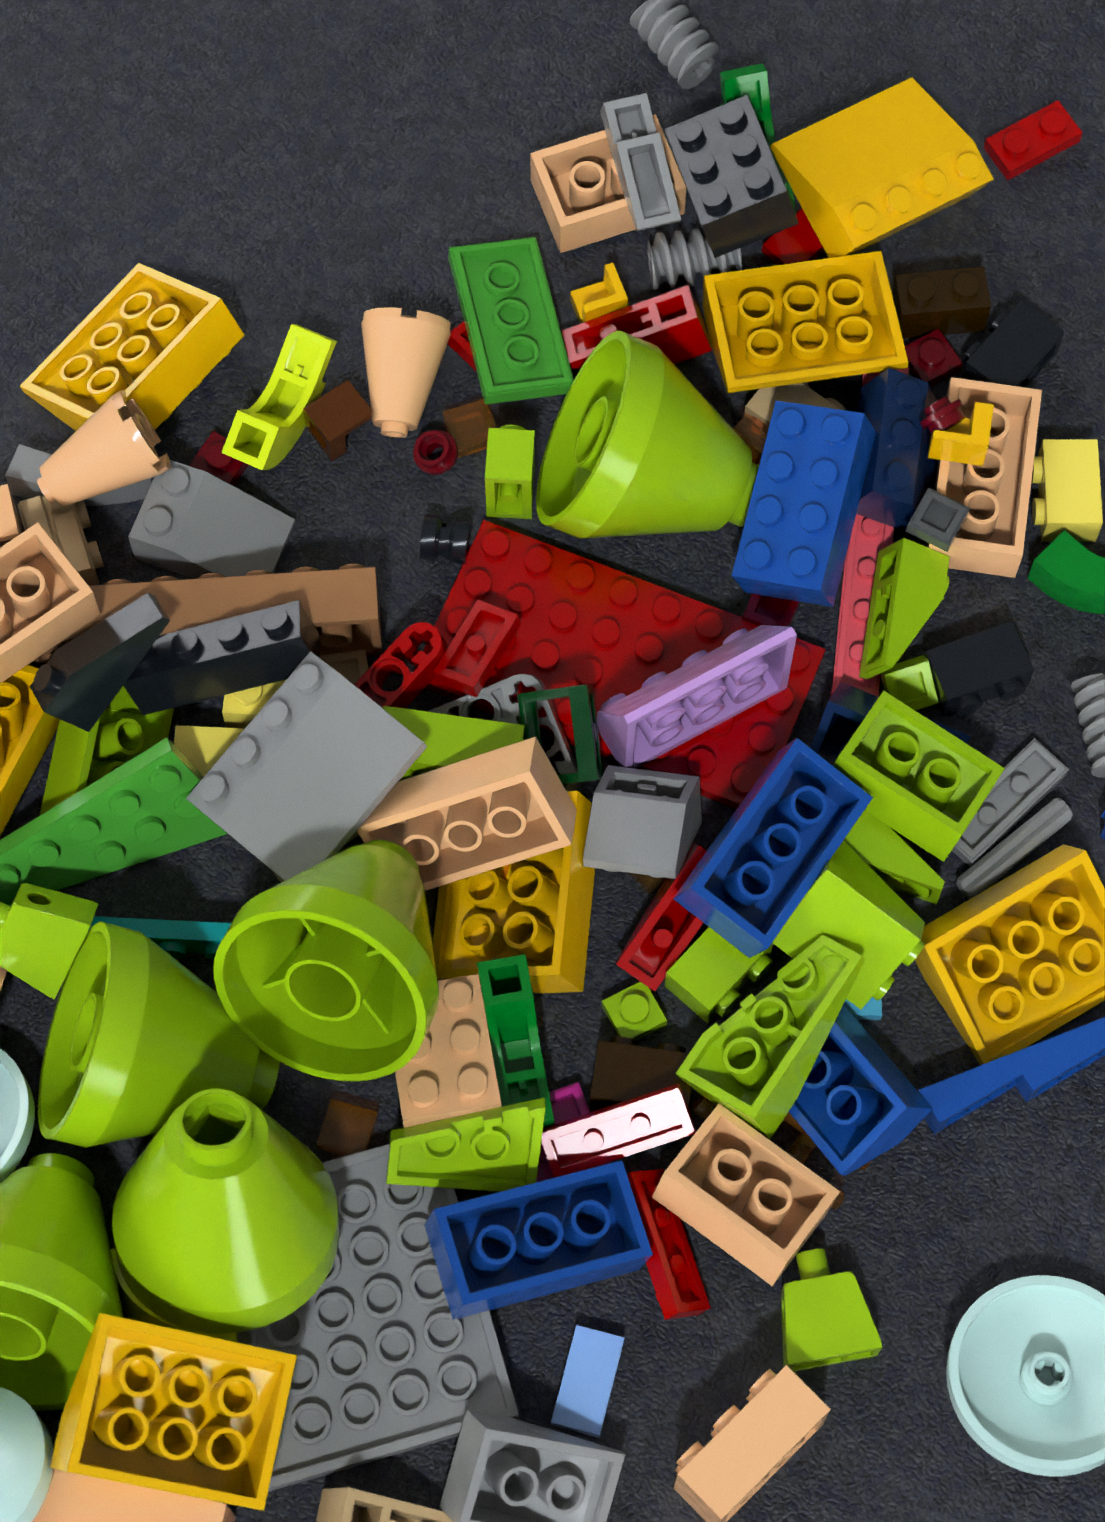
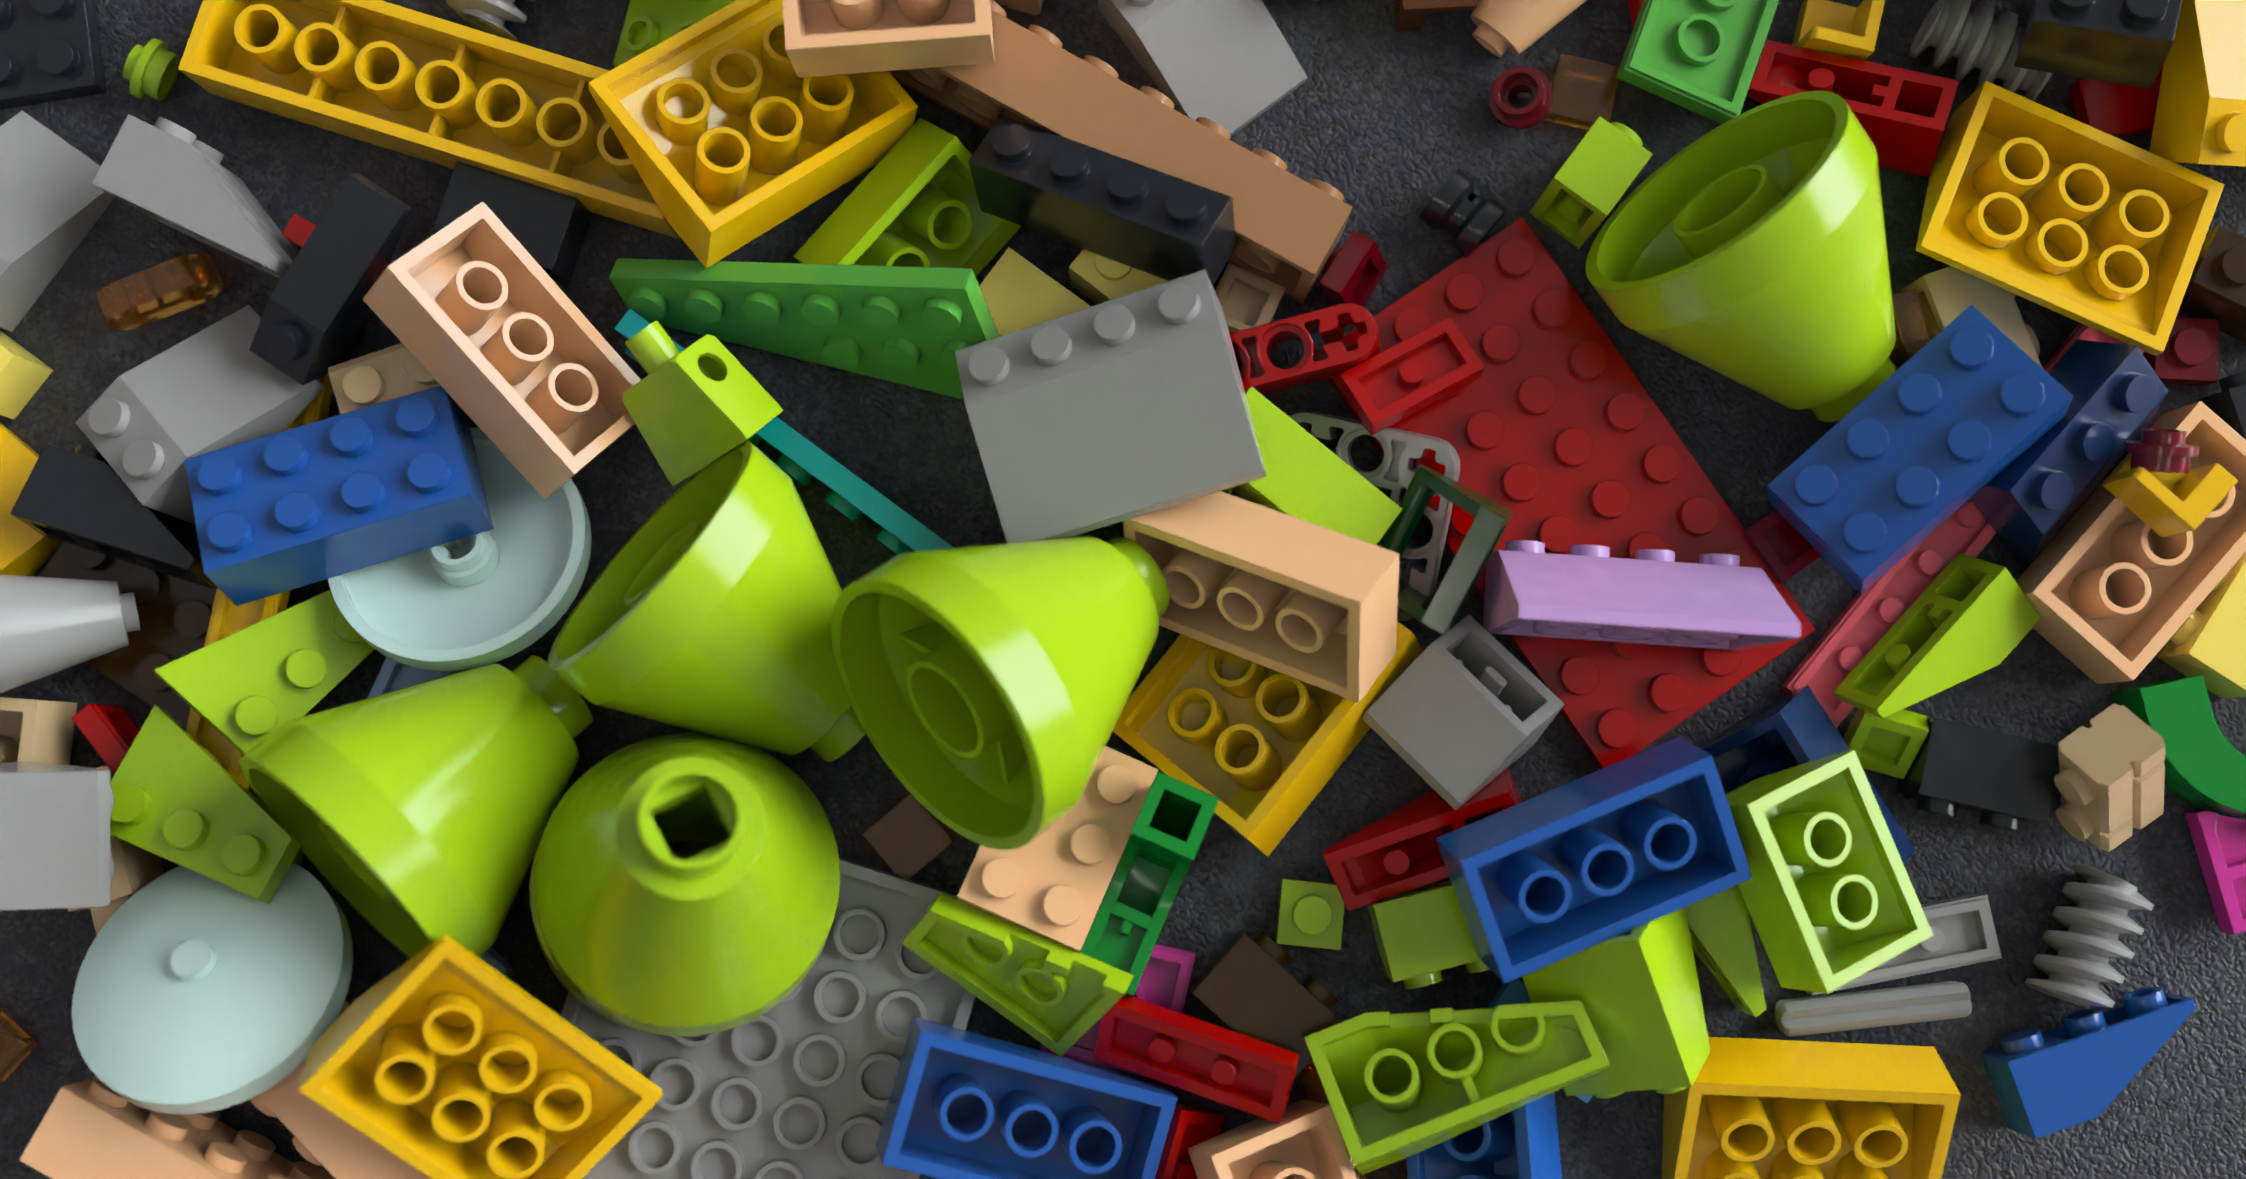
camera: 35 degrees right, 15 degrees up
(95, 665) = (953, 122): black slope -> none
(400, 610) = (1353, 271): none -> dark red plate
(937, 519) = (2062, 573): dark grey tile -> none
(1051, 621) = (2110, 778): none -> tan brick

